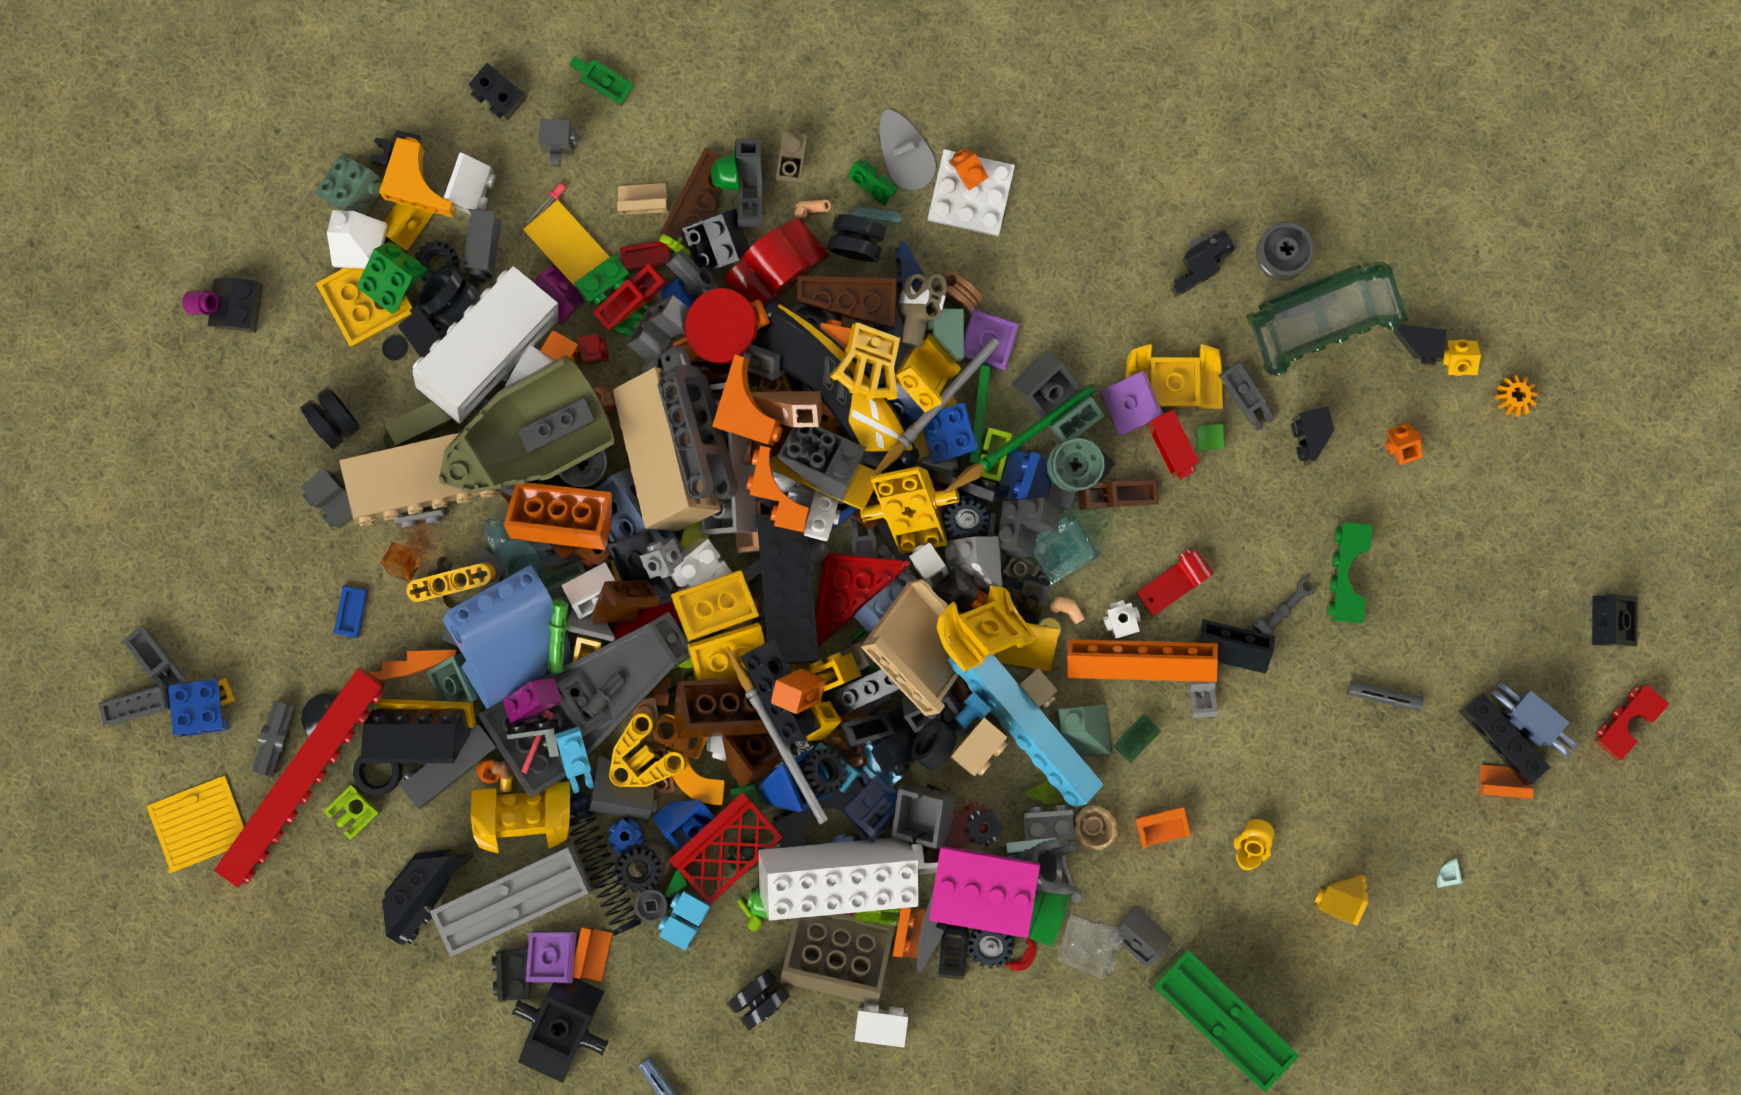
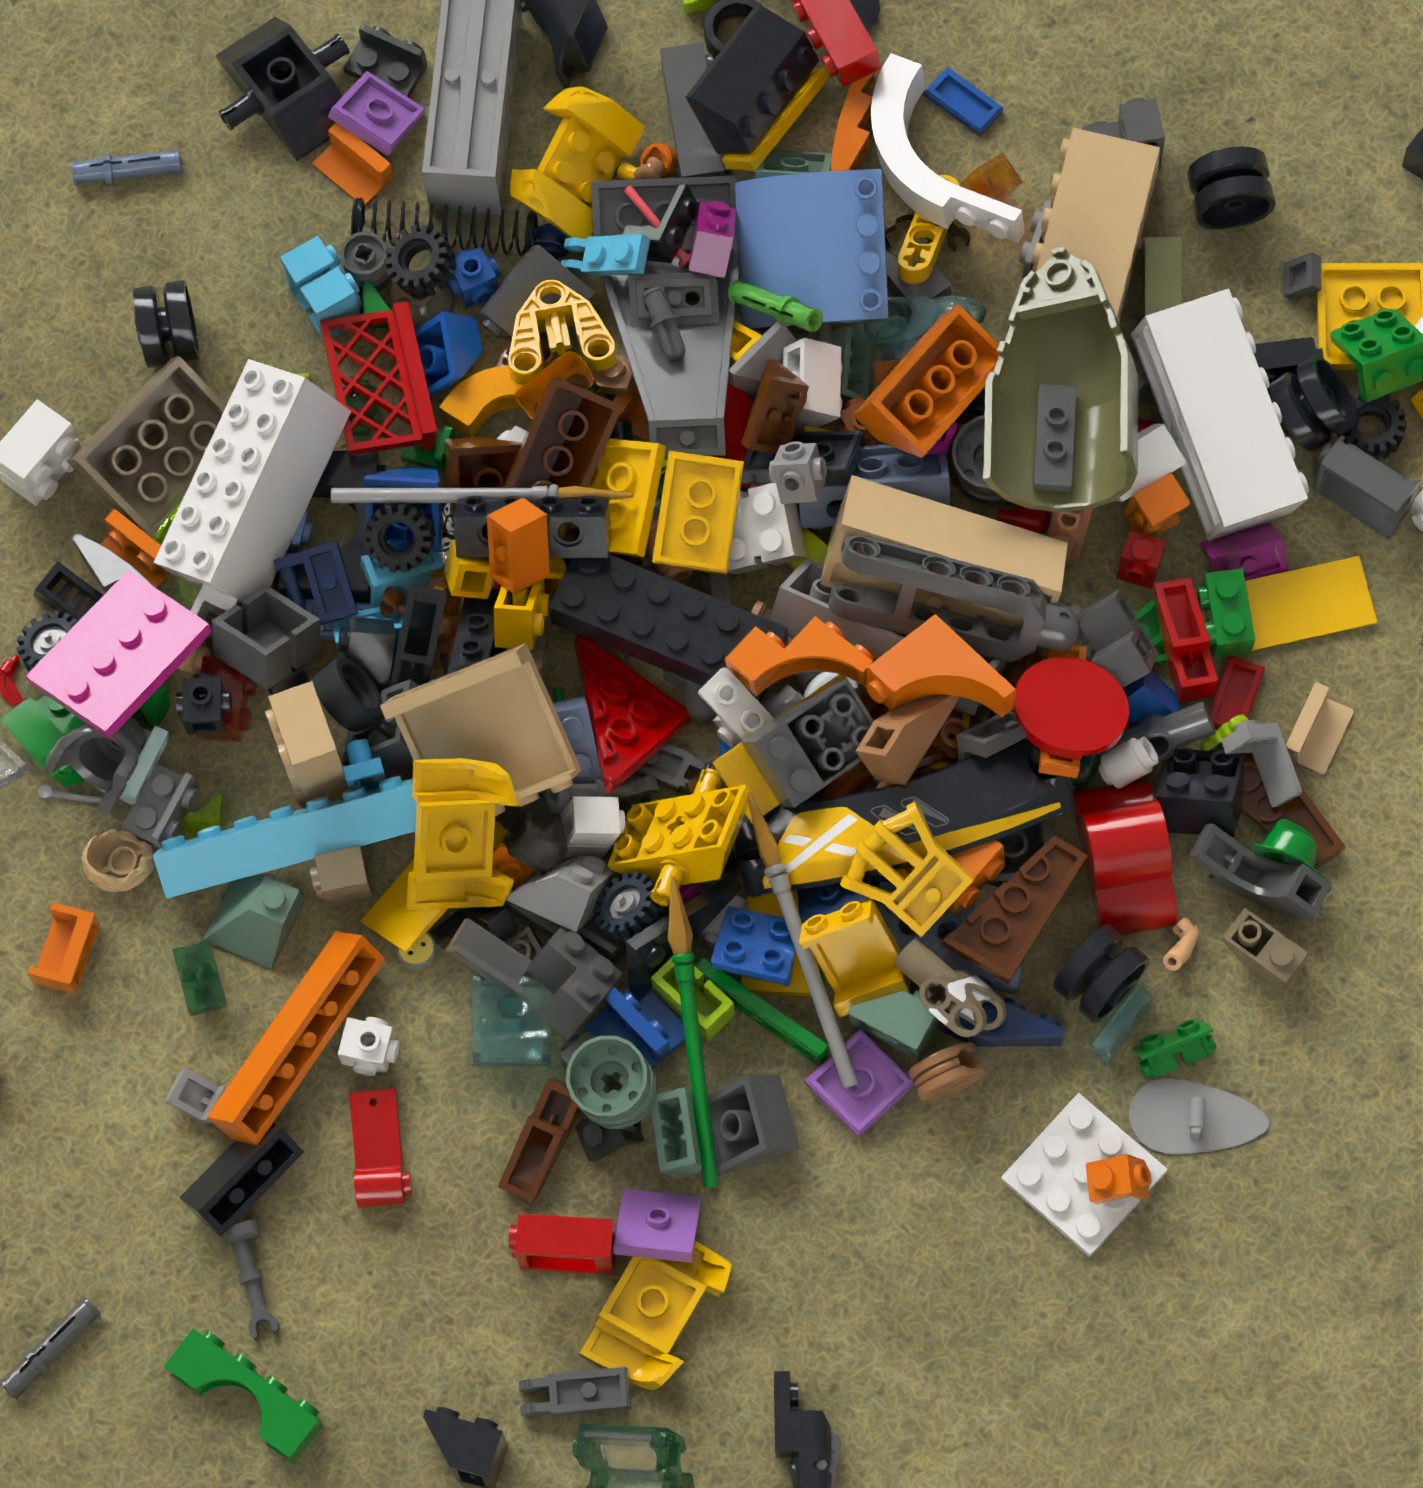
camera: 120 degrees right, 15 degrees down
(362, 351) = (1302, 276): none -> dark grey tile
(394, 348) = (1285, 321): black piece -> none
(432, 592) = (927, 193): none -> white arch
(557, 191) = (1387, 622): coral piece -> none
(678, 210) = (1270, 757): none -> light grey bracket
(724, 279) = (1128, 762): none -> white brick
(1041, 575) = (488, 956): none -> dark grey panel
(1068, 606) = (431, 990): light nougat arm -> none
(1210, 437) = (548, 1312): bright green slope -> none

